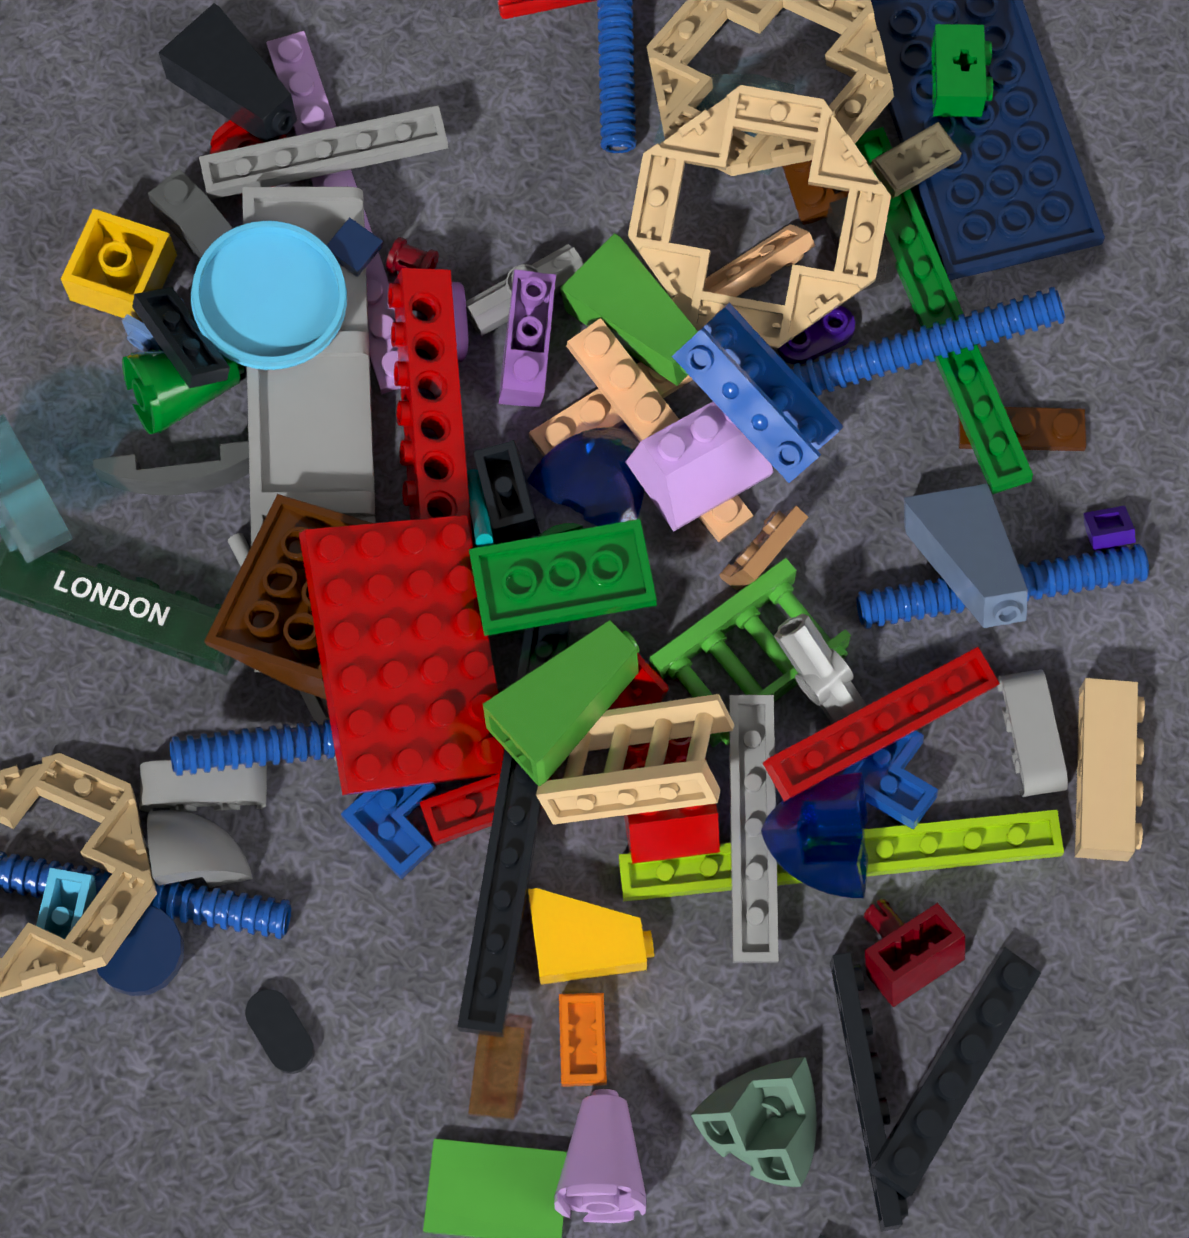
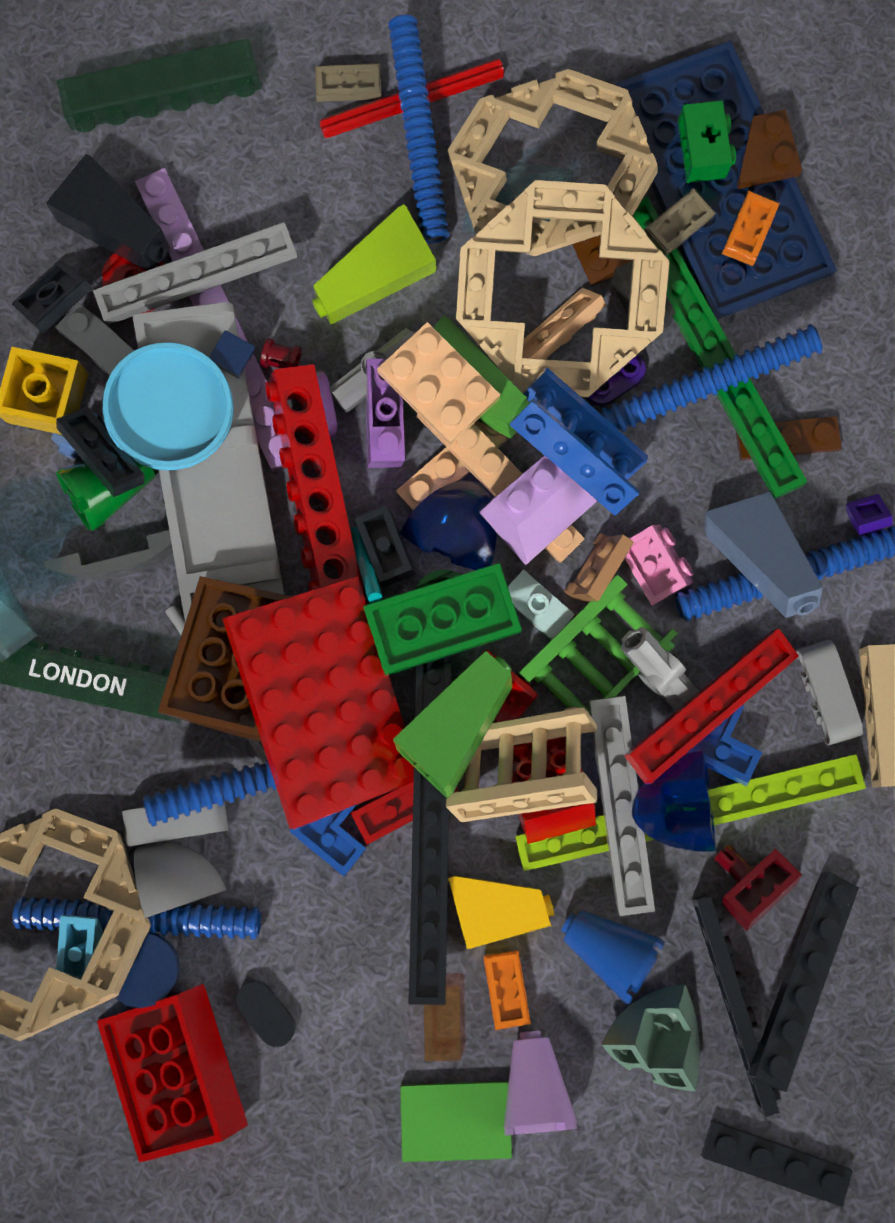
camera: 10 degrees left, 10 degrees up
(147, 159) = (51, 296): none -> black tile
(154, 1084) = (173, 1075): none -> red slope
(541, 172) = (375, 268): none -> lime slope
(596, 306) = (438, 383): none -> light nougat plate
(684, 585) = (539, 605): none -> light aqua plate
(723, 1007) = (613, 951): none -> blue cone
(838, 554) = (657, 564): none -> bright pink bracket
(1002, 176) = (750, 228): none -> orange plate
(1037, 91) = (769, 151): none -> reddish brown wing

